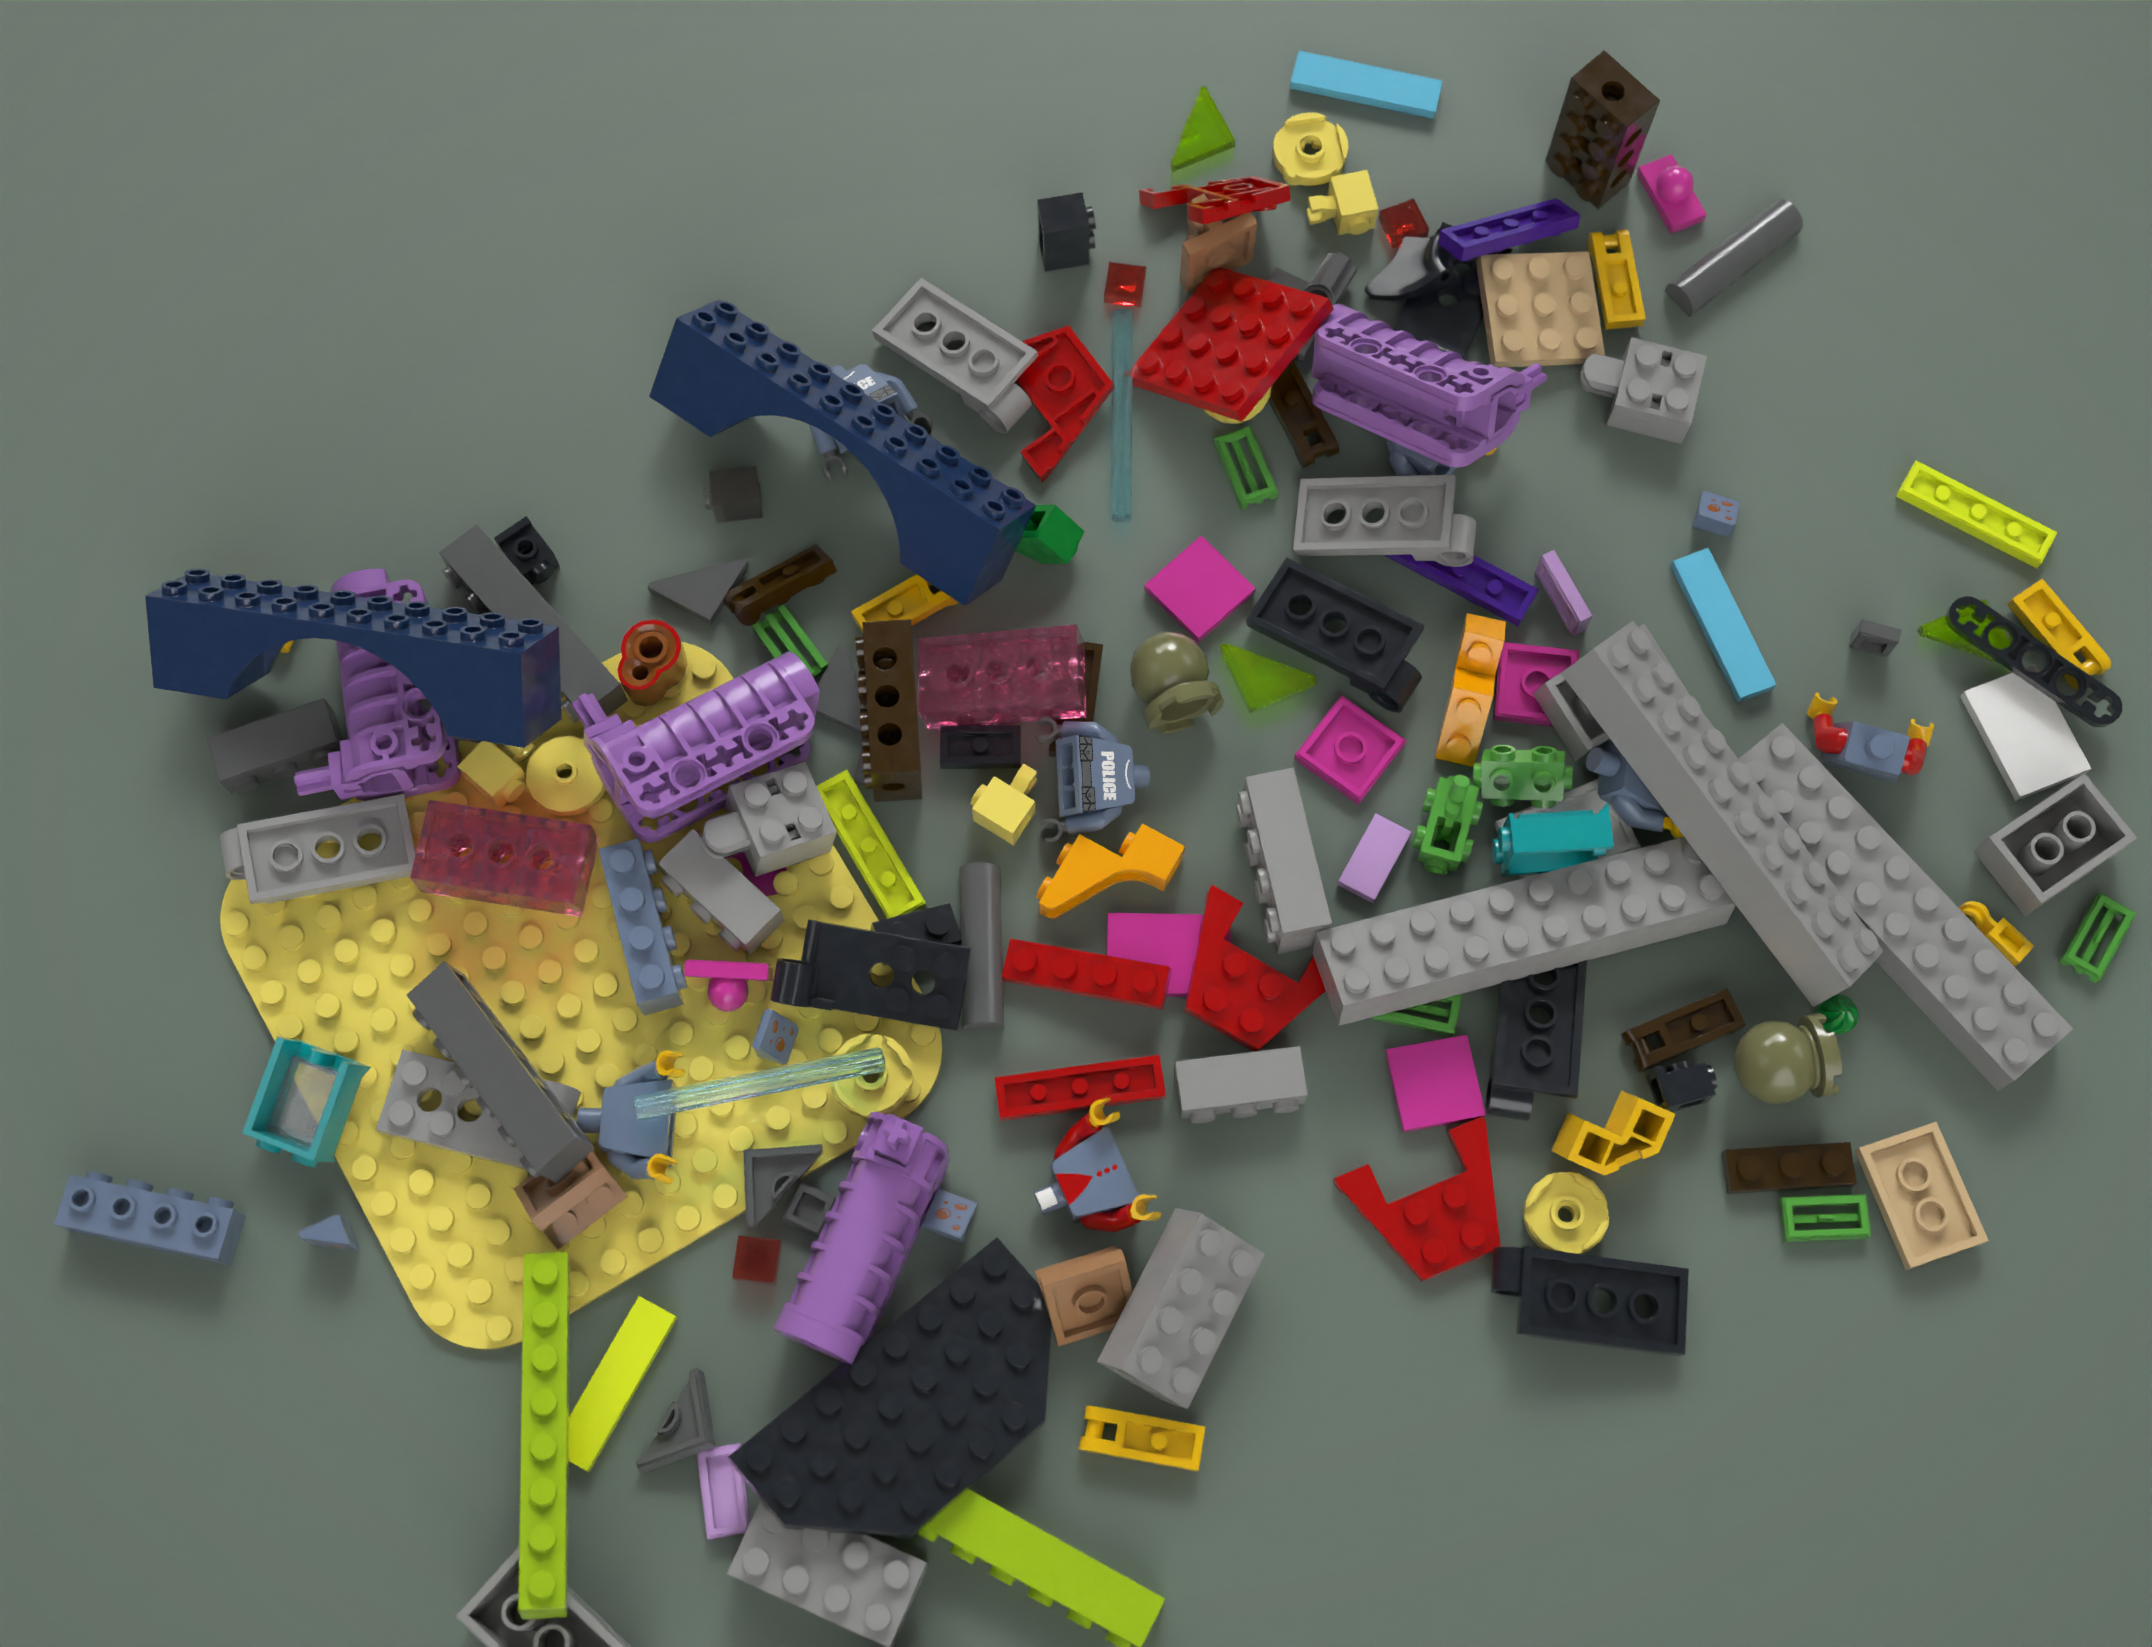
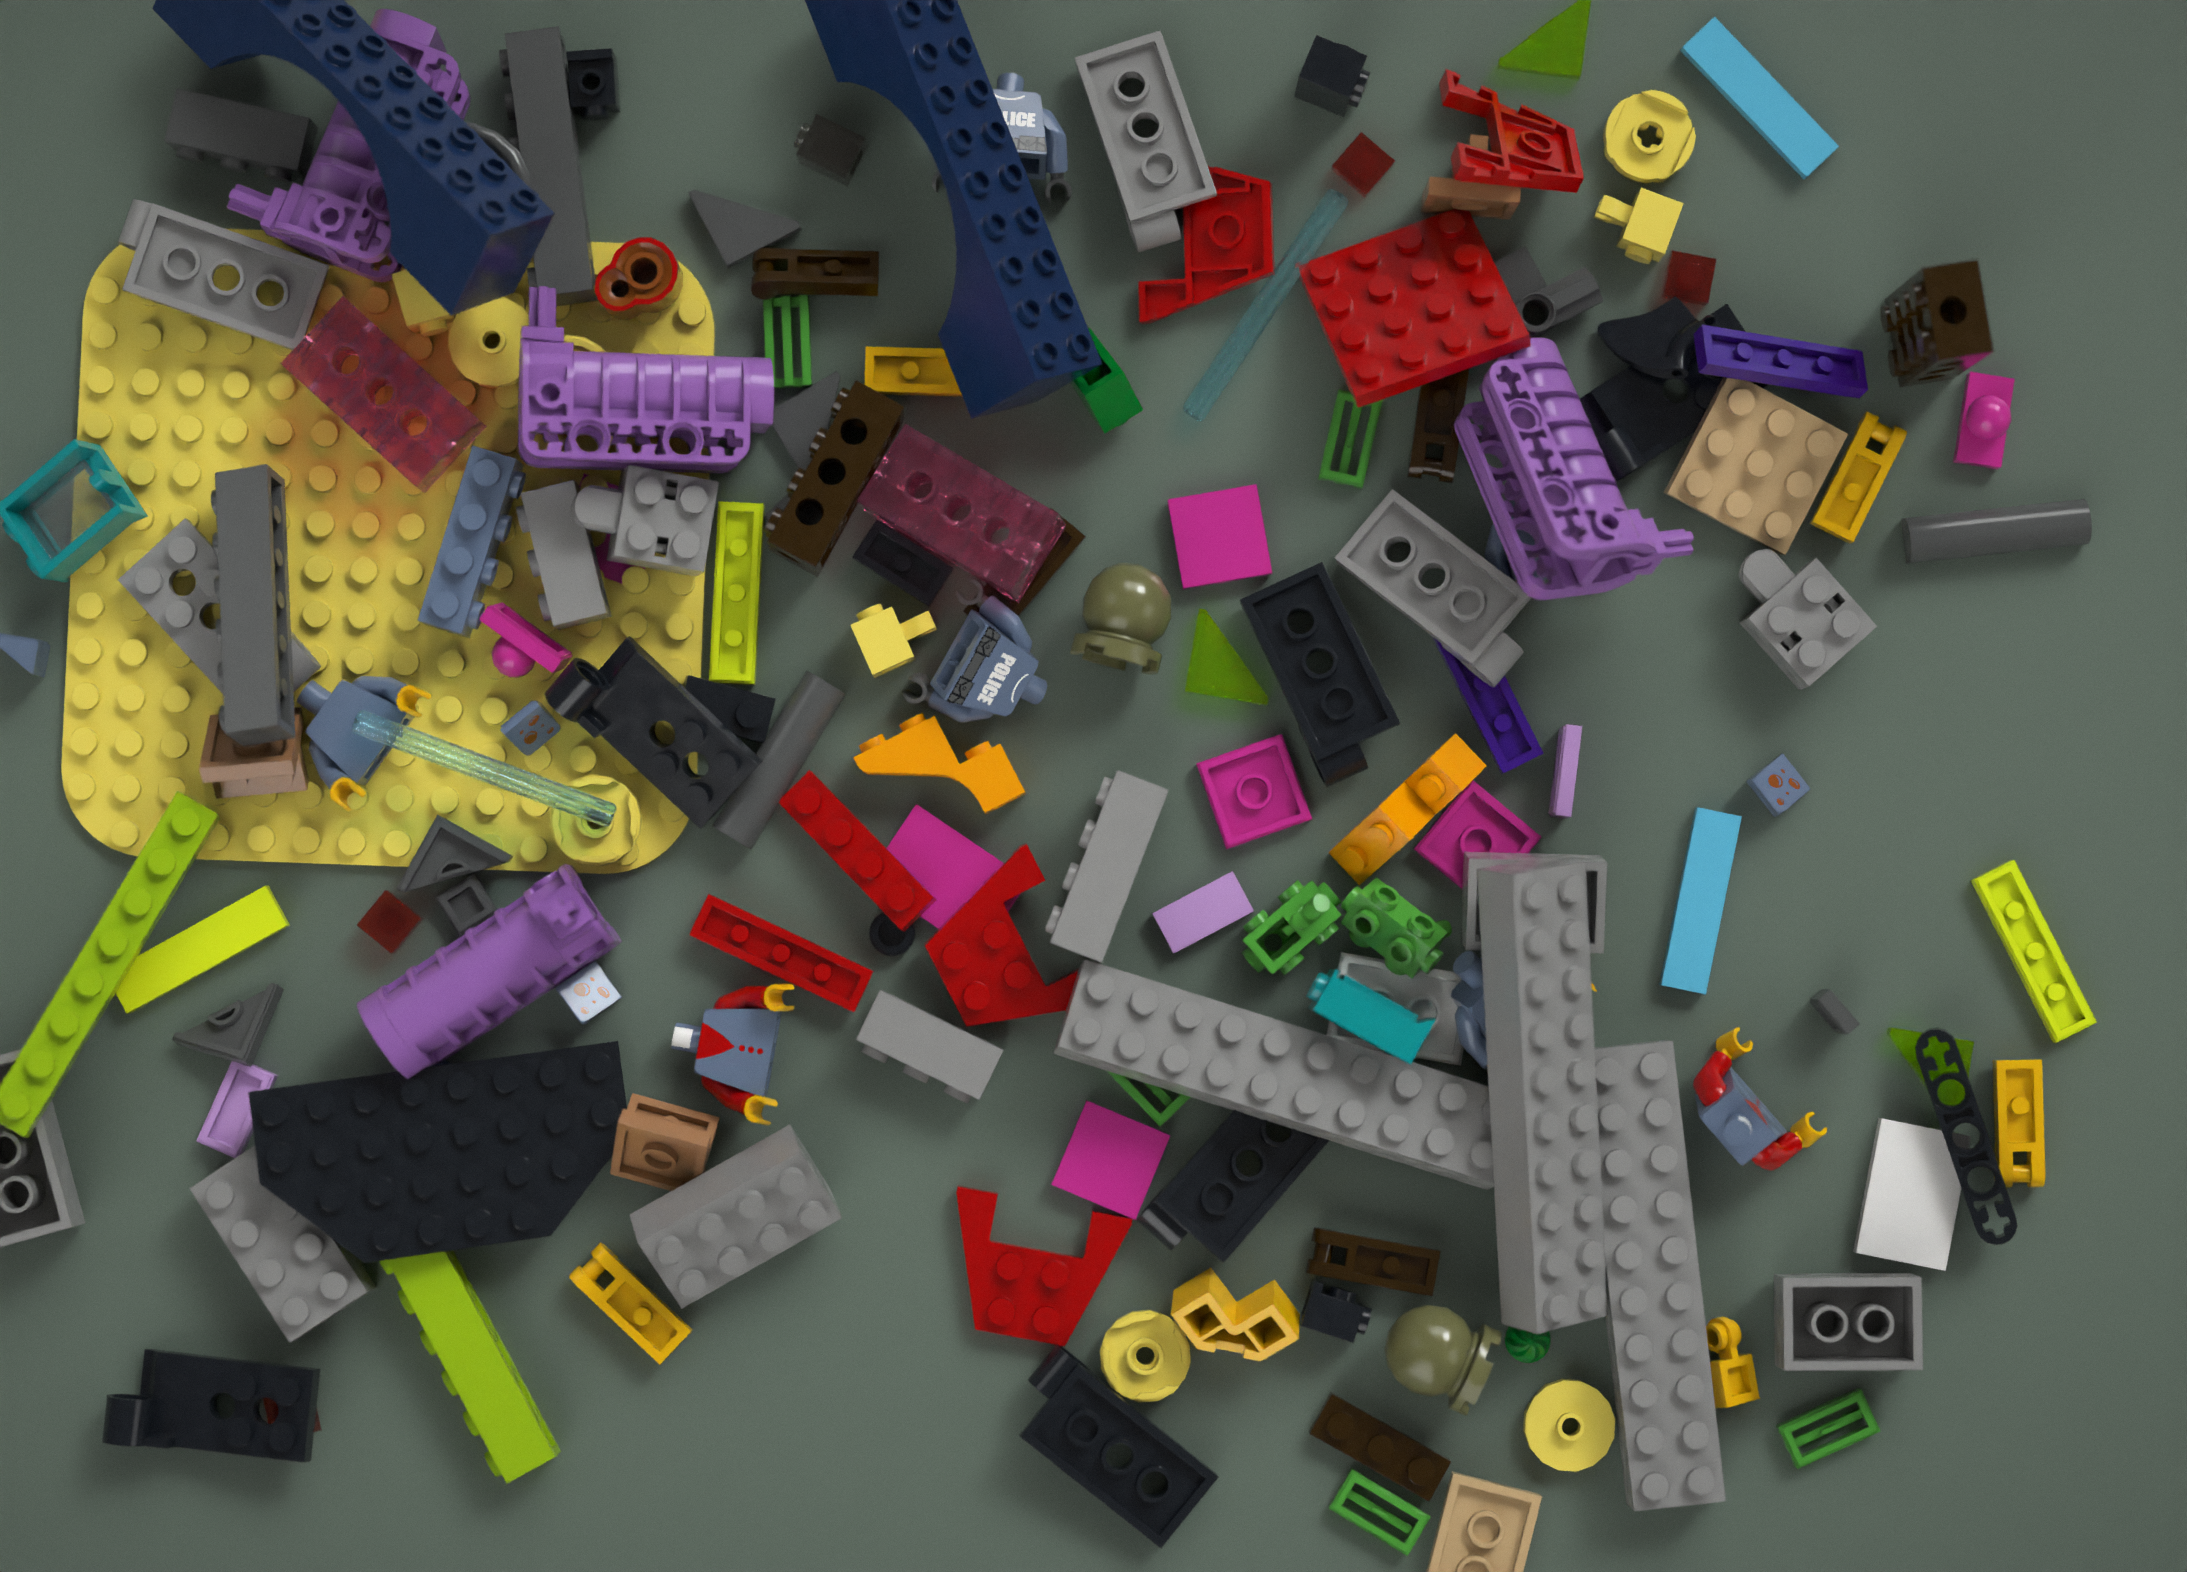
camera: 30 degrees right, 15 degrees up
(1153, 1024) = (888, 938): none -> black tile
(1897, 1070) = (1551, 1408): none -> light yellow plate

